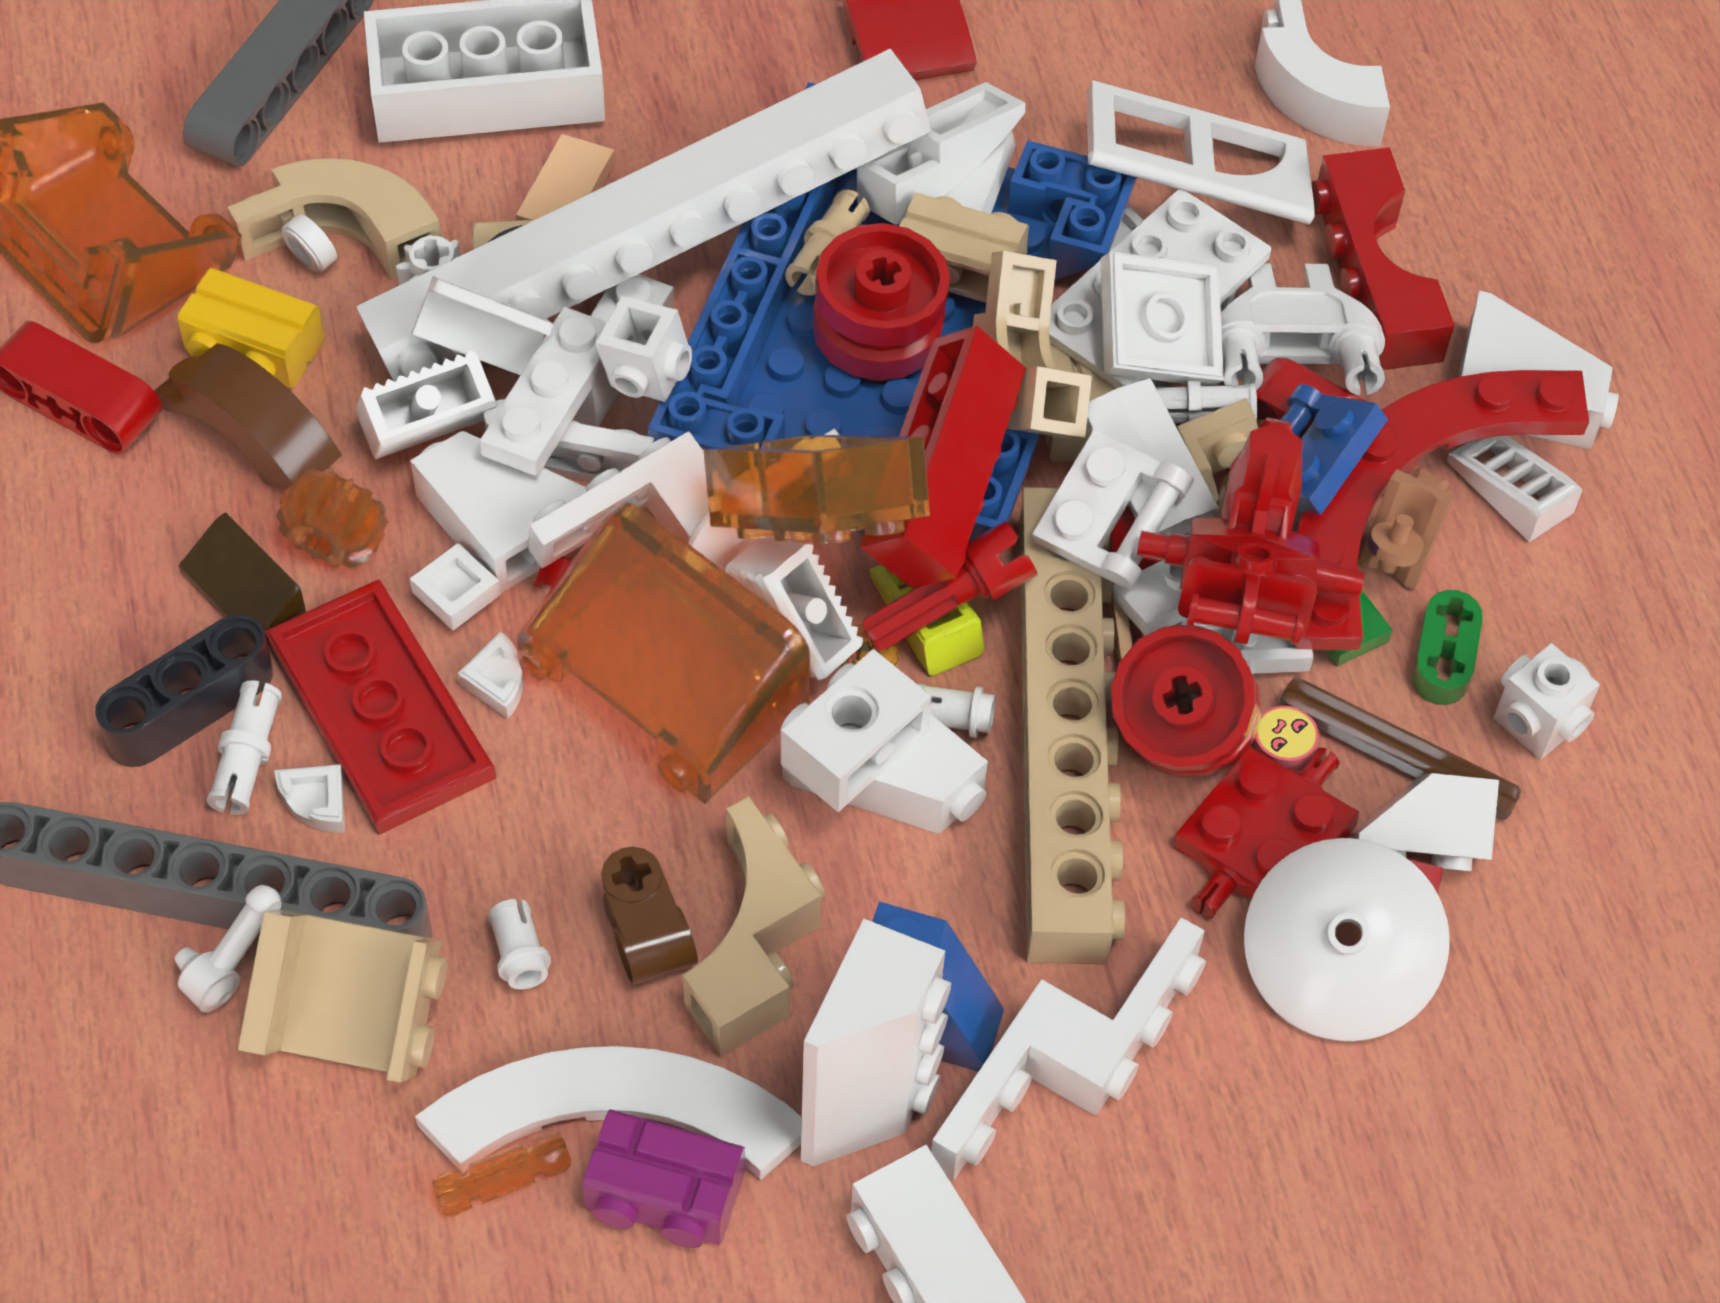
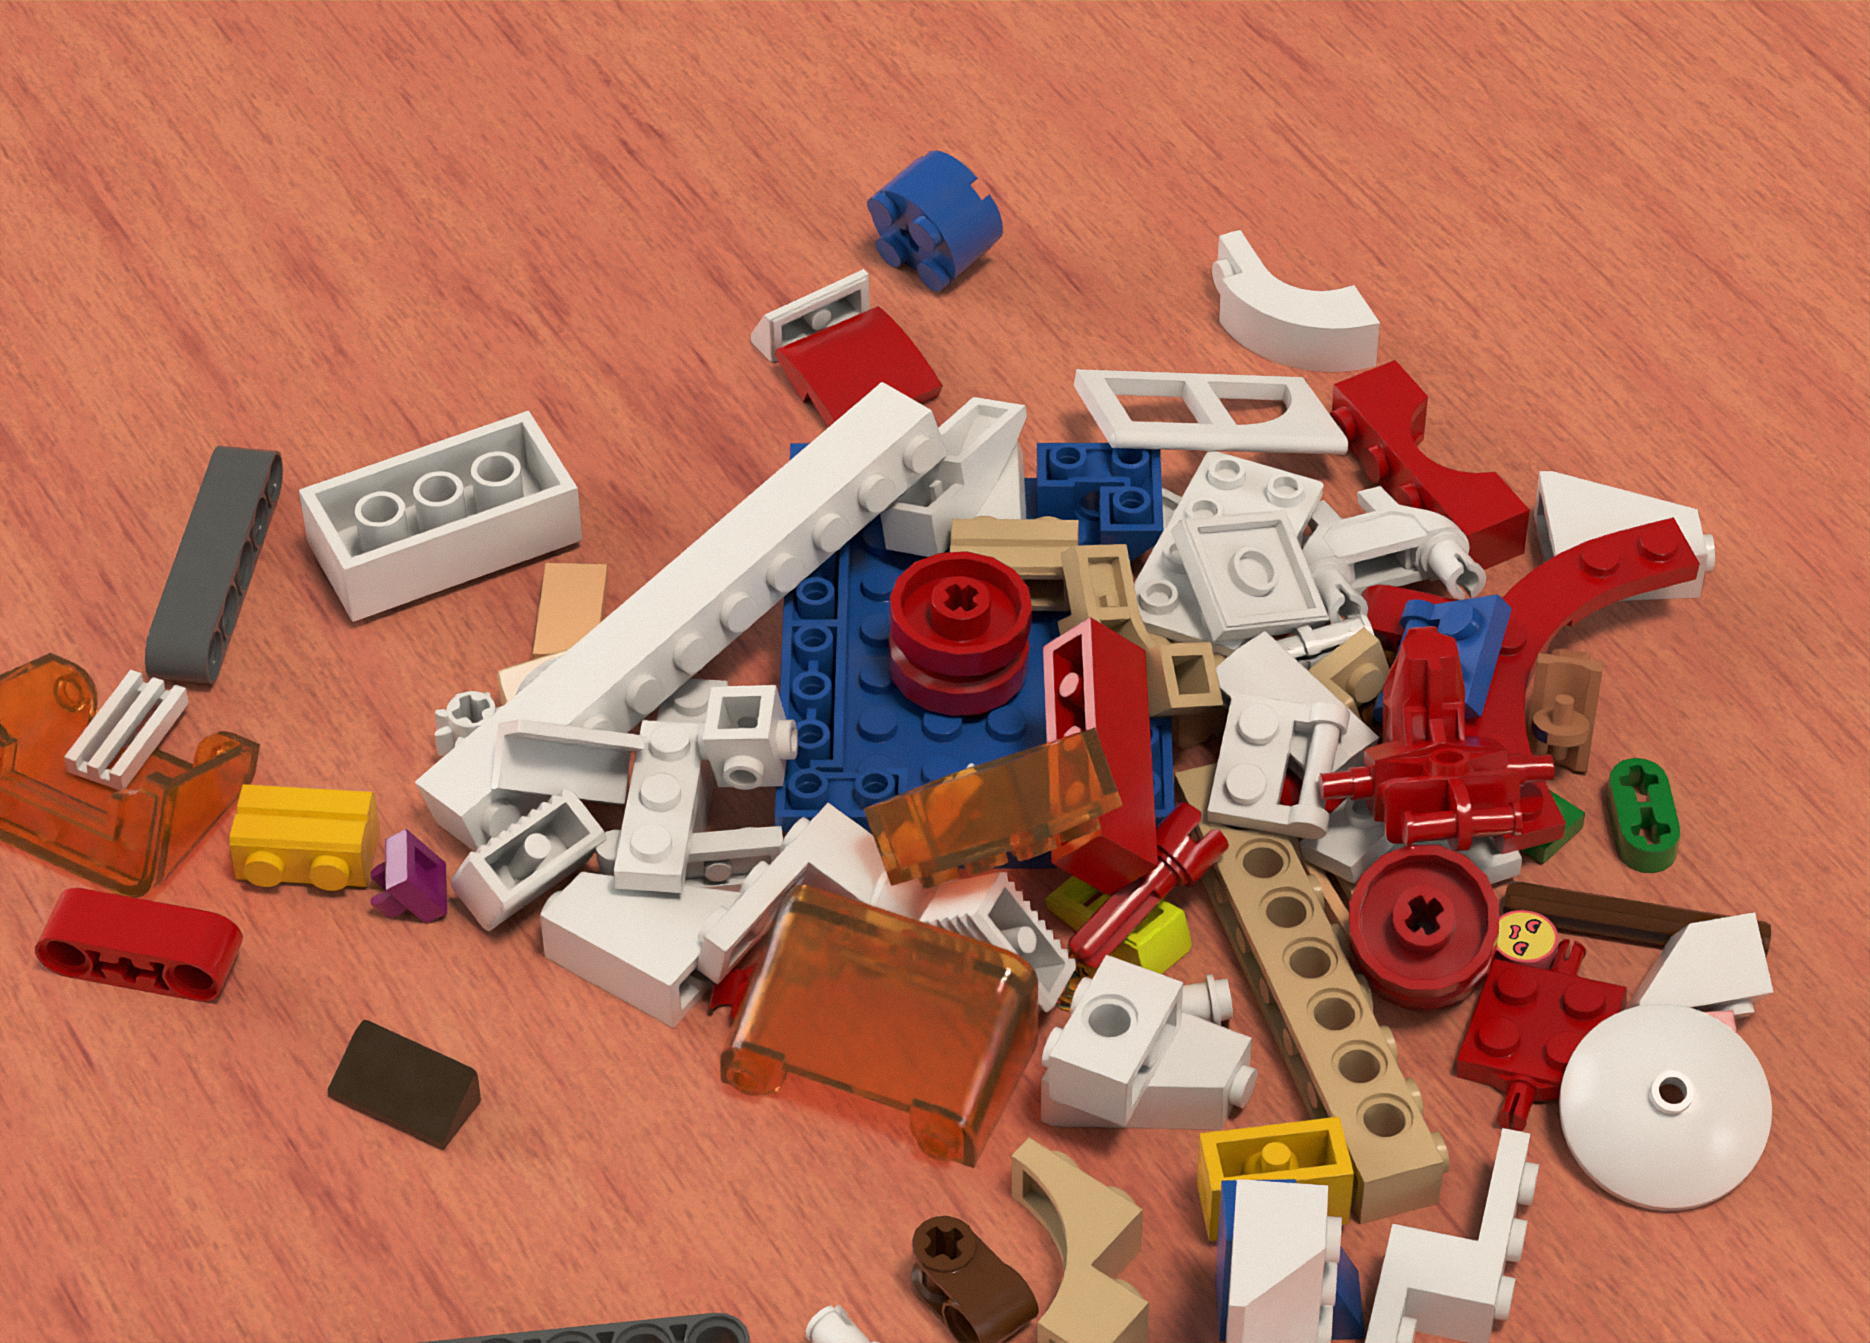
camera: 15 degrees left, 10 degrees down
(139, 184) = (116, 727): none -> white tile
(174, 717) = (422, 1174): black beam -> none
(244, 748) = (481, 1244): white pin -> none
(252, 412) = (350, 910): reddish brown arch -> none
(308, 243) = (327, 737): white tile -> none
(314, 796) = (571, 1273): white tile -> none
(329, 391) = (411, 879): none -> magenta tile
(332, 518) = (481, 994): clear orange gear -> none
(342, 200) = (349, 684): tan arch -> none
(380, 706) = (600, 1167): red tile -> none
(455, 586) = (631, 1028): white plate -> none
(495, 676) = (708, 1105): white tile -> none
(819, 235) = (873, 591): tan pin -> none
(972, 892) = (1299, 1150): none -> yellow brick
(1527, 515) = (1670, 664): white slope -> none
(1546, 700) = (1761, 835): white brick -> none

